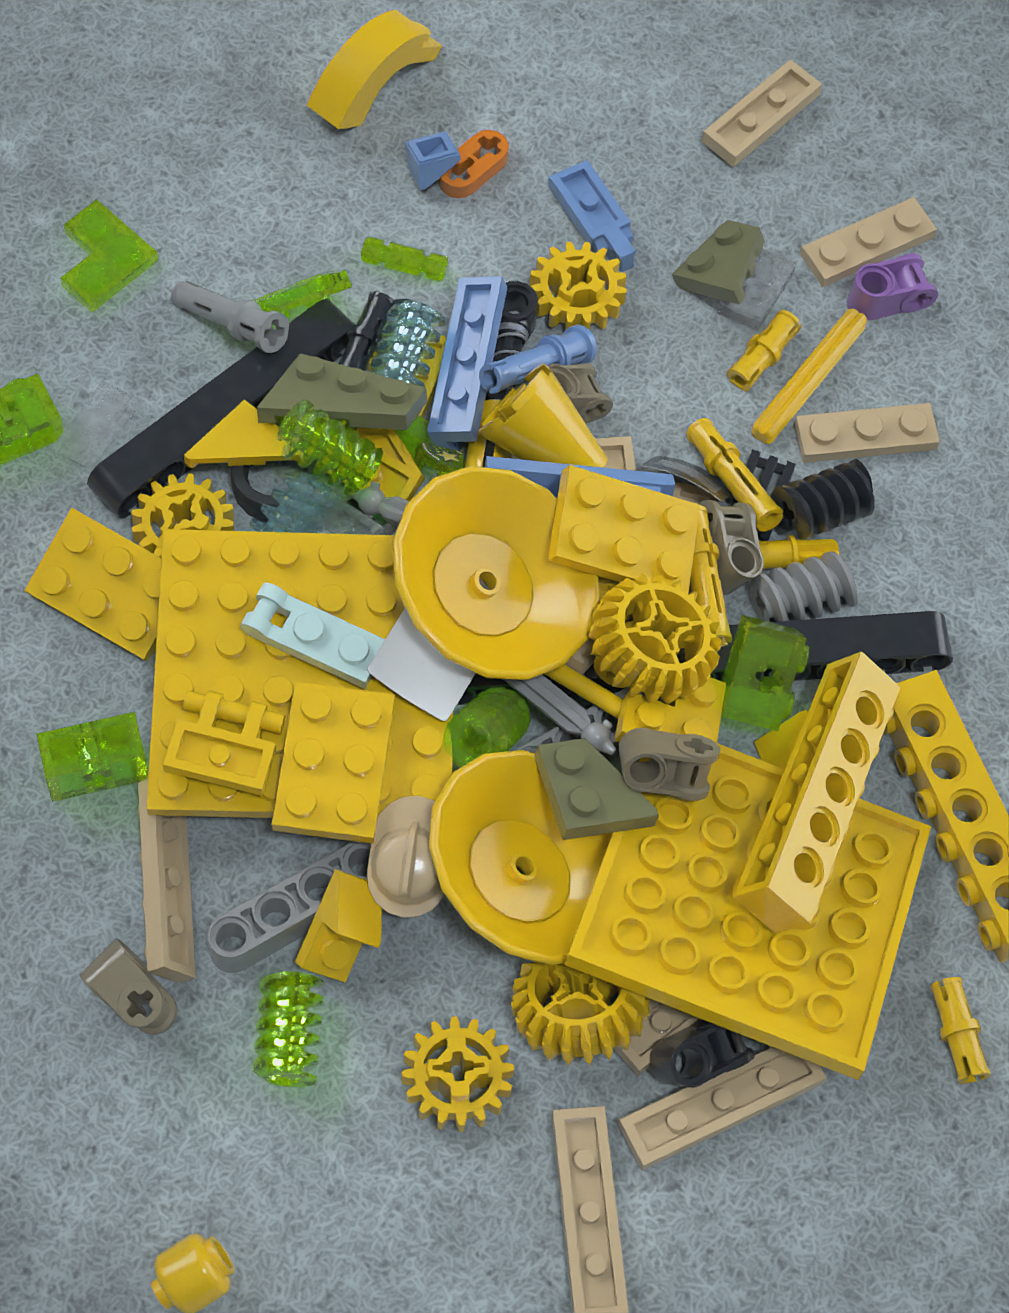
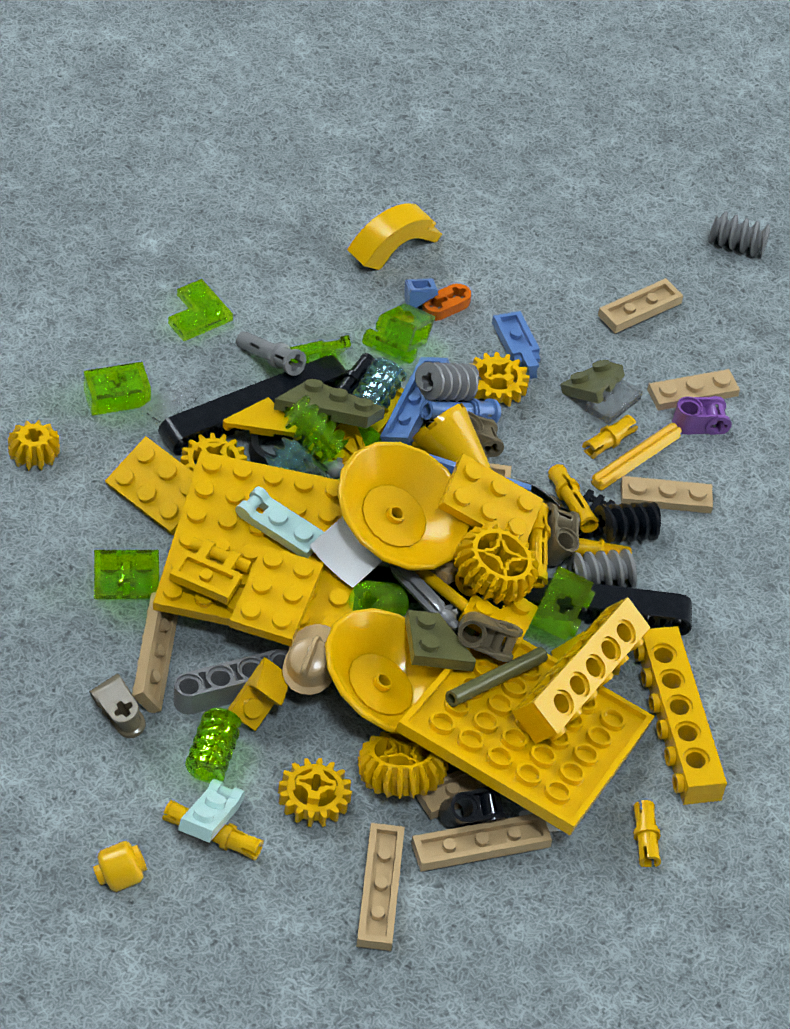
camera: 10 degrees right, 15 degrees down
(310, 1151) = (211, 811): none -> light aqua plate
(329, 1176) = (228, 837): none -> yellow pin
(422, 229) = (404, 327): none -> clear neon green brick
(512, 323) = (447, 381): none -> light grey piece
(692, 830) = (496, 676): none -> olive piece

